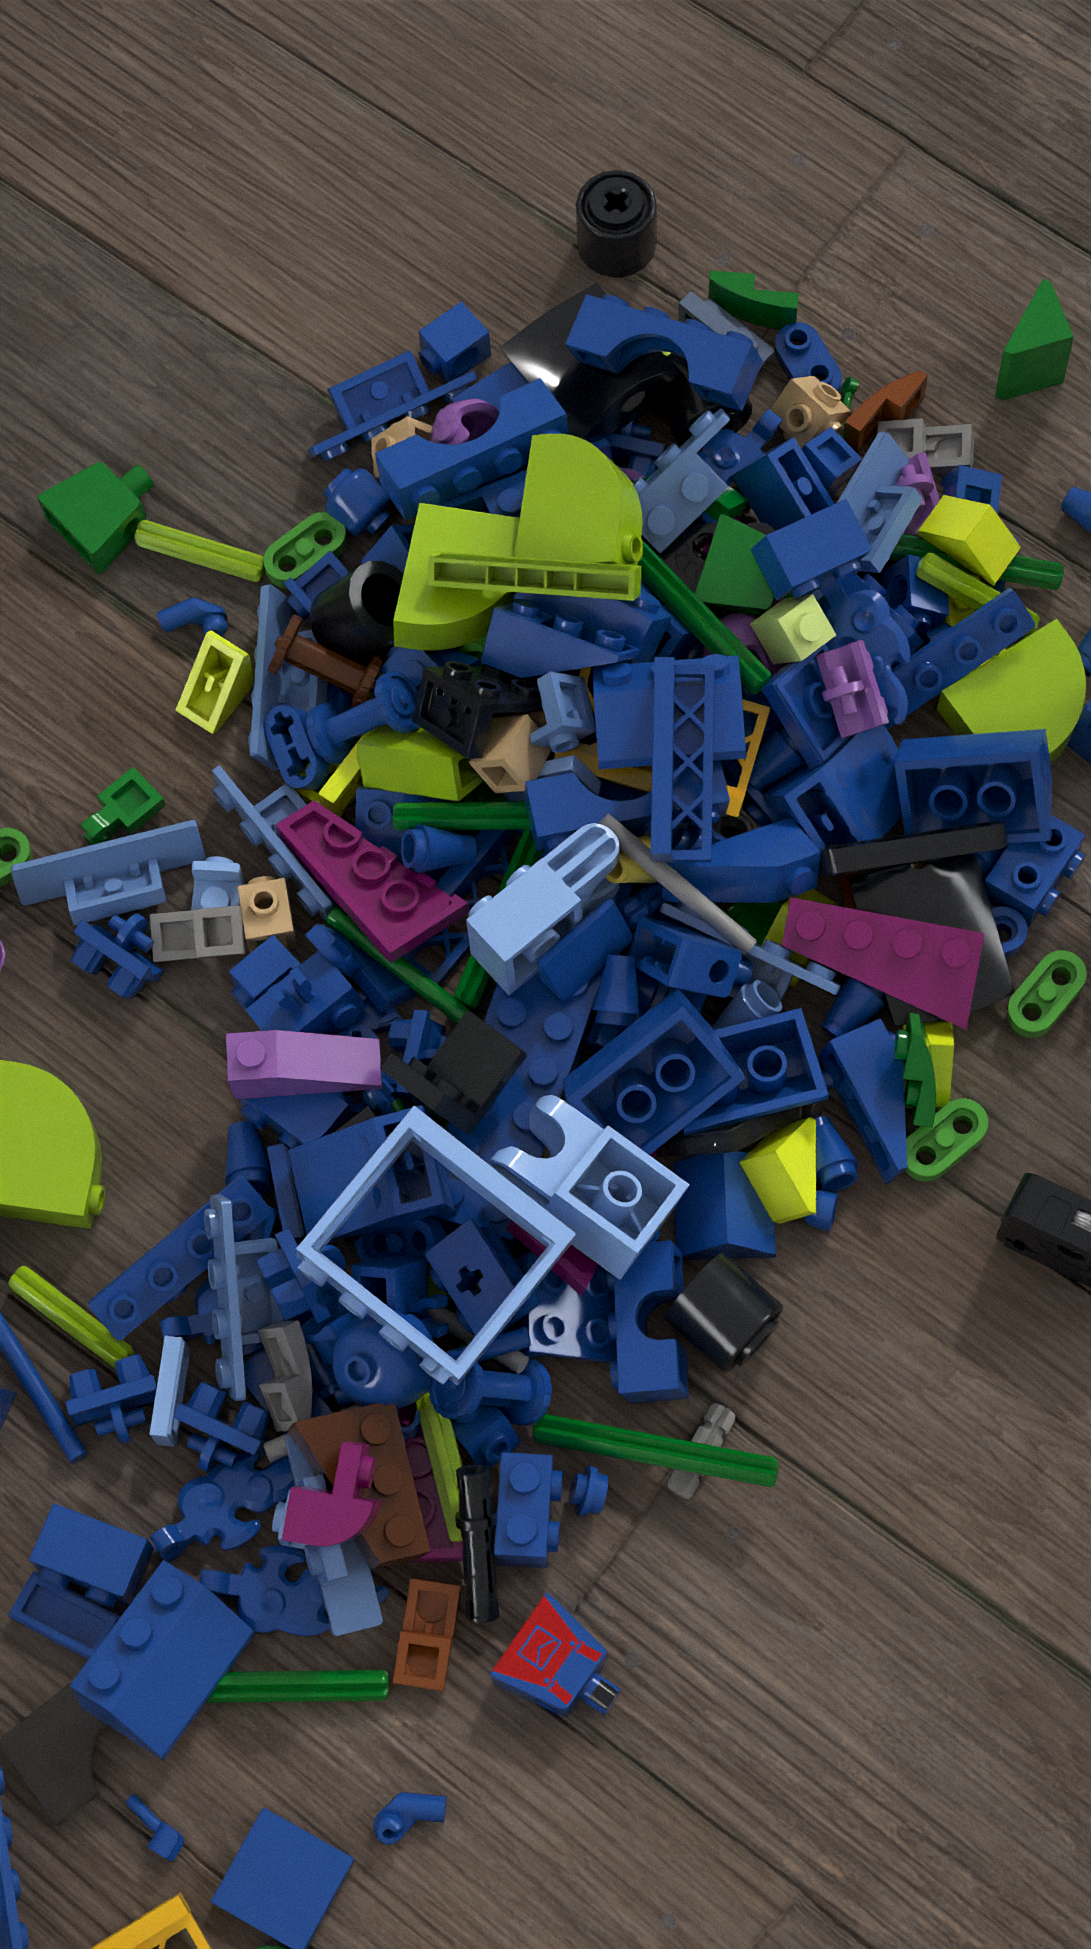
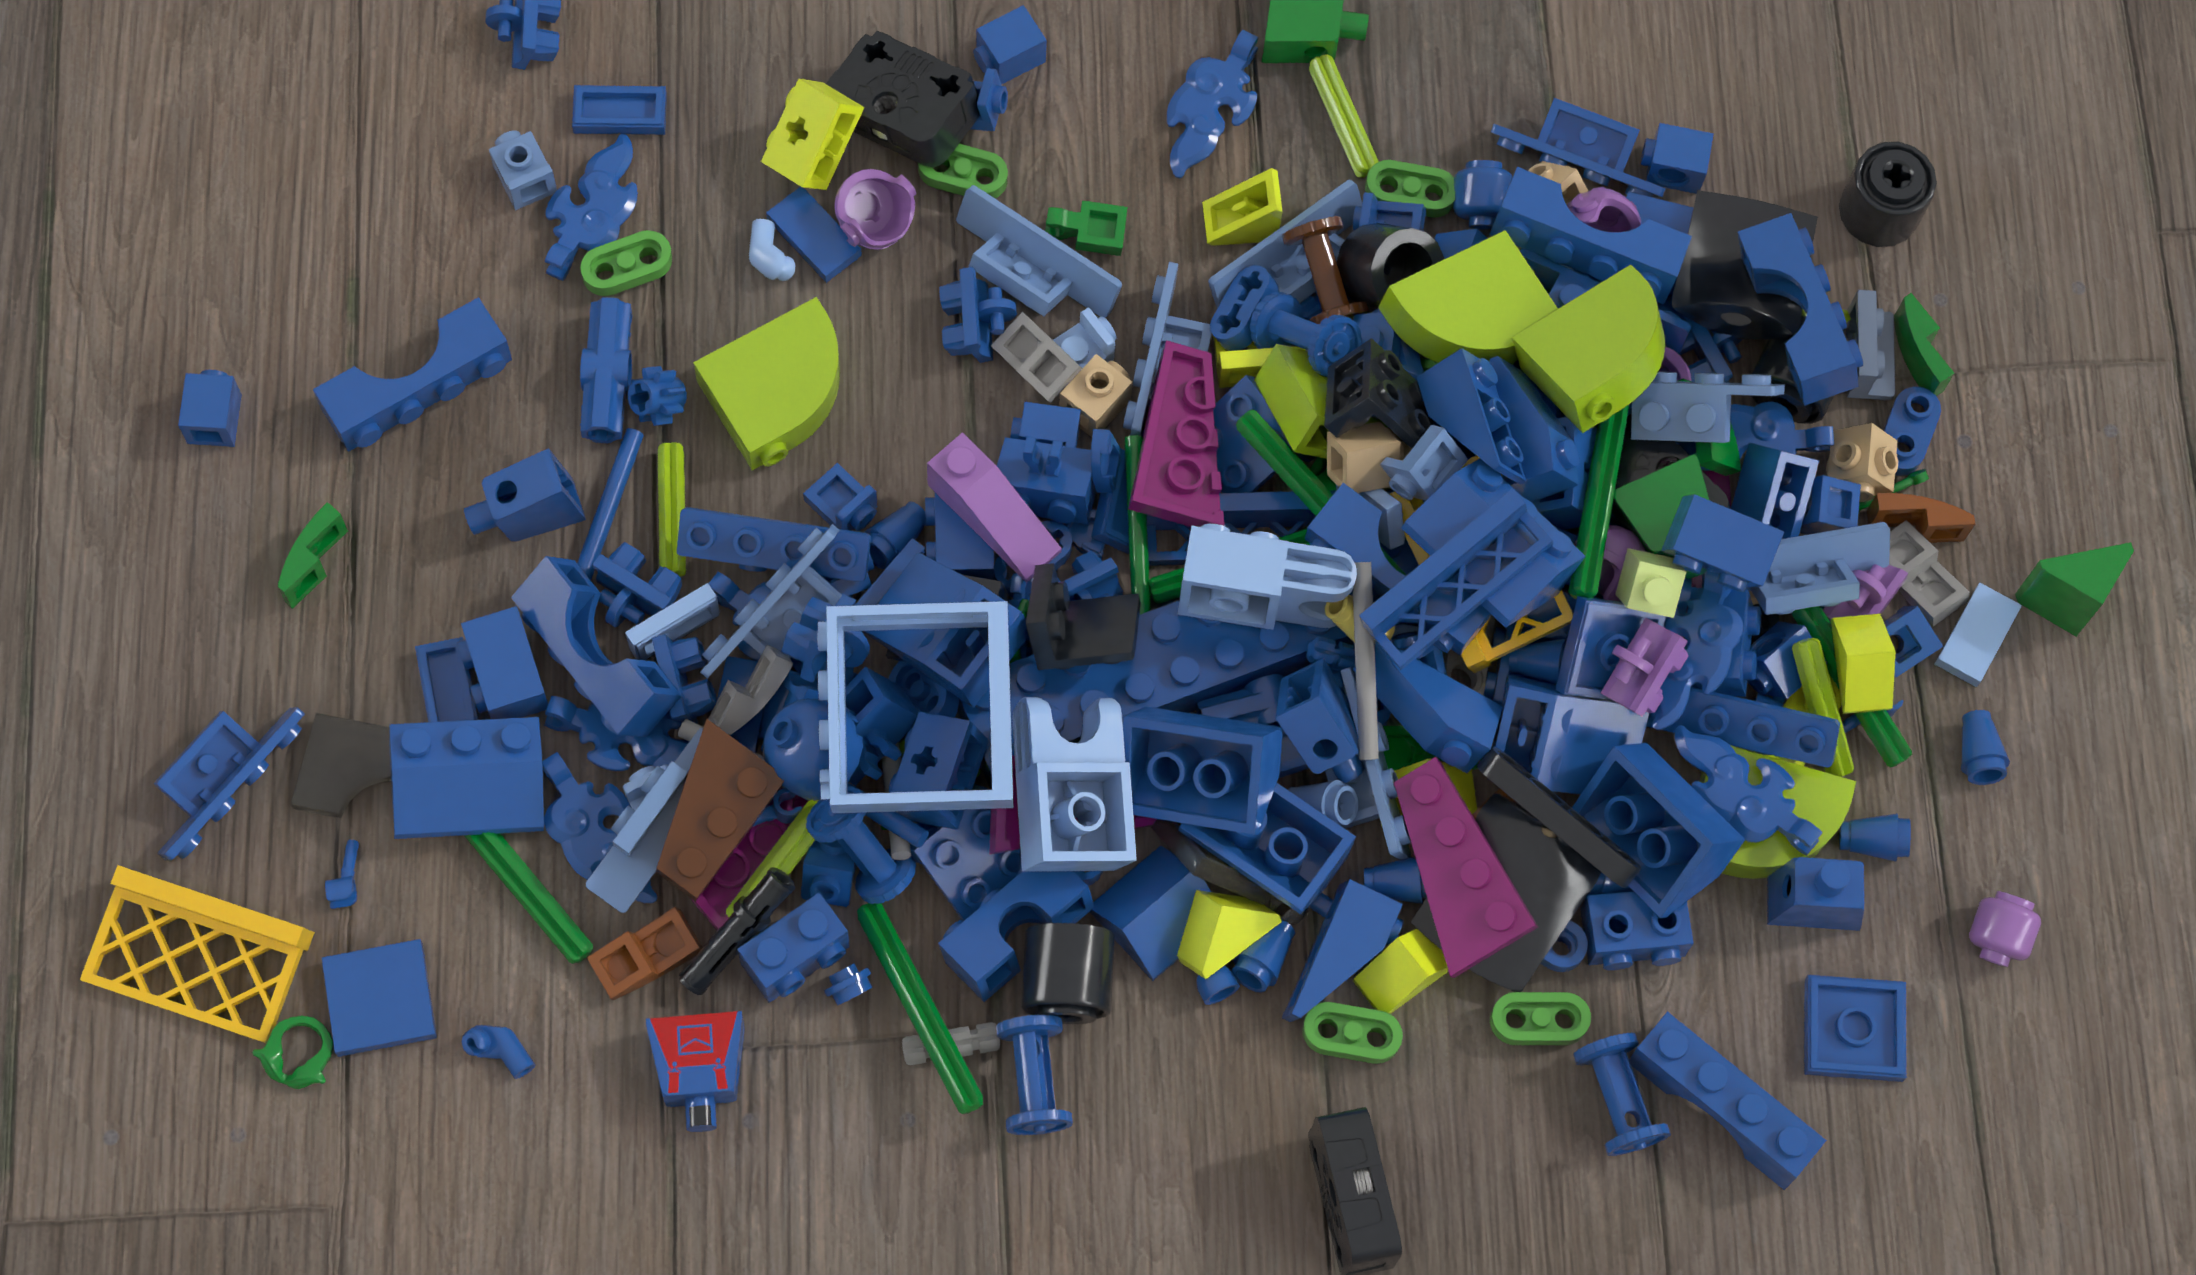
camera: 40 degrees right, 0 degrees up
(80, 1469) = (561, 607): none -> blue arch
(90, 649) = (1197, 101): none -> blue piece
(183, 1177) = (842, 500): none -> blue bracket
(194, 611) = (1292, 152): blue arm -> none
(338, 1515) = (667, 804): magenta brick -> none
(434, 848) = (1244, 467): blue cone -> none
(534, 575) = (1512, 356): lime piece -> none
(584, 950) = (1258, 638): blue slope -> none
(618, 992) = (1248, 691): blue cone -> none
(783, 1405) = (1034, 1074): none -> blue hose
(917, 1067) = (1385, 963): green slope -> none
(1007, 445) = (1978, 634): none -> light blue tile
(1019, 707) = (1750, 809): none -> blue piece

